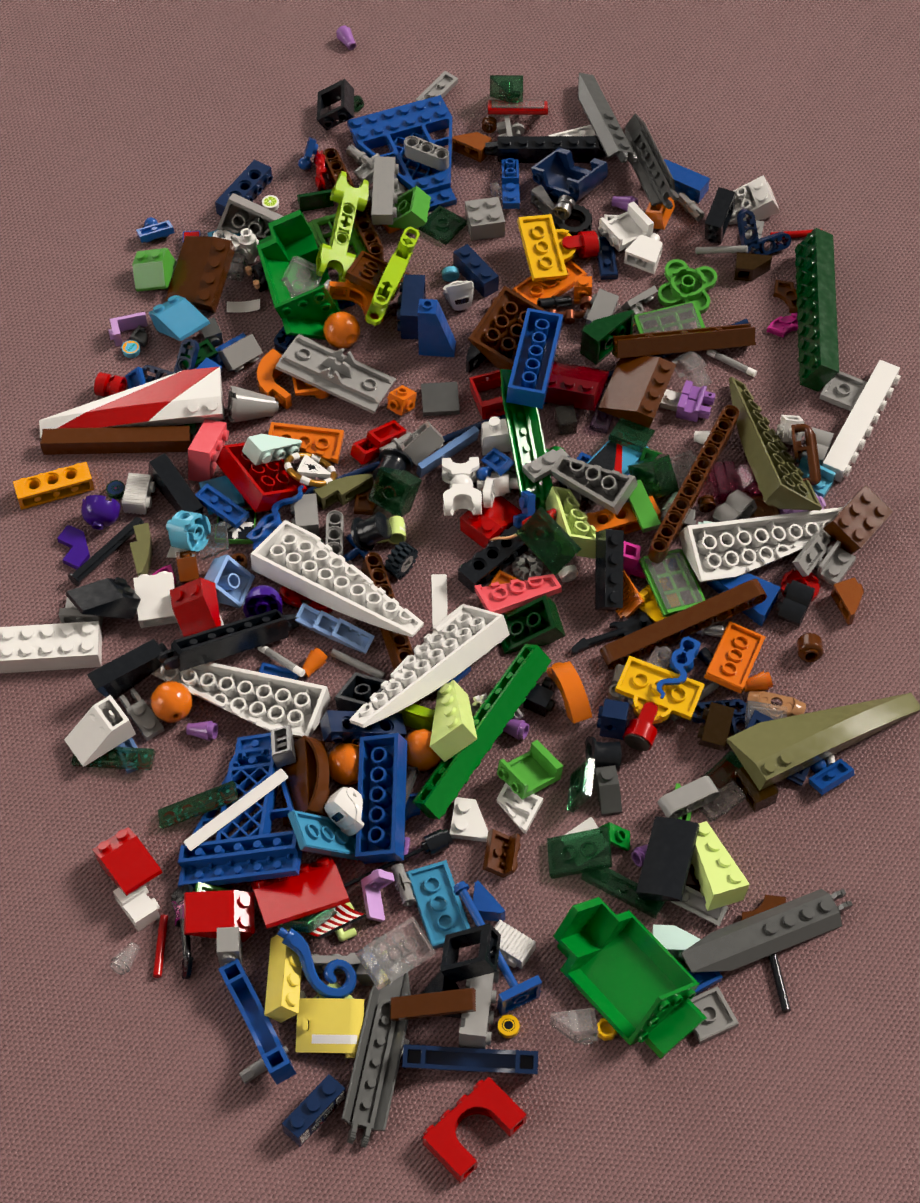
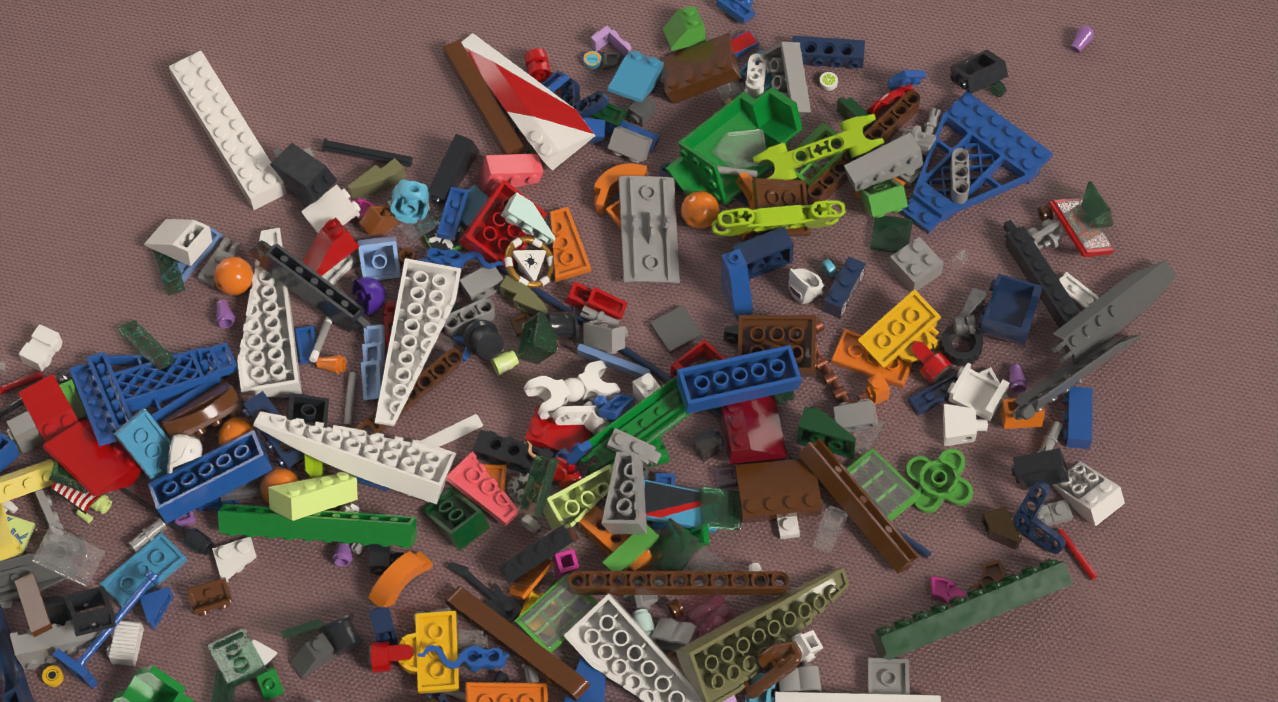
camera: 65 degrees right, 5 degrees up
(53, 485) = (428, 98): light orange brick -> none
(76, 541) = (355, 134): dark purple tile -> none
(99, 511) = (396, 127): dark purple cylinder -> none
(115, 489) = (434, 127): tile -> none
(126, 861) = (69, 319): red slope -> none
(127, 670) = (242, 226): black slope -> none
(137, 493) = (434, 144): white brick -> none
(235, 809) = (148, 373): white sticker -> none
(244, 306) = (691, 117): white sticker -> none
(249, 405) = (574, 179): light grey cone -> none
(283, 748) = (215, 379): flat silver slope -> none
(299, 945) = (39, 478): blue plant -> none
(371, 892) = (124, 518): lavender bracket -> none
(401, 400) = (649, 297): orange brick -> none
(401, 560) = (468, 379): black wheel -> none
(440, 86) = (1066, 148): light grey plate -> none
(471, 145) = (1007, 210): dark orange slope -> none
(510, 183) = (976, 268): blue slope -> none
(519, 810) = (266, 591): white wing -> none
(530, 771) = (298, 582): bright green panel -> none
(554, 302) = (847, 372): black axle -> none
(635, 303) = (886, 443): light grey hinge -> none
(691, 402) = (801, 549): medium lavender hips -> none
(721, 249) = (1005, 492): light grey bar -> none
(731, 362) = (867, 565): light grey bar -> none

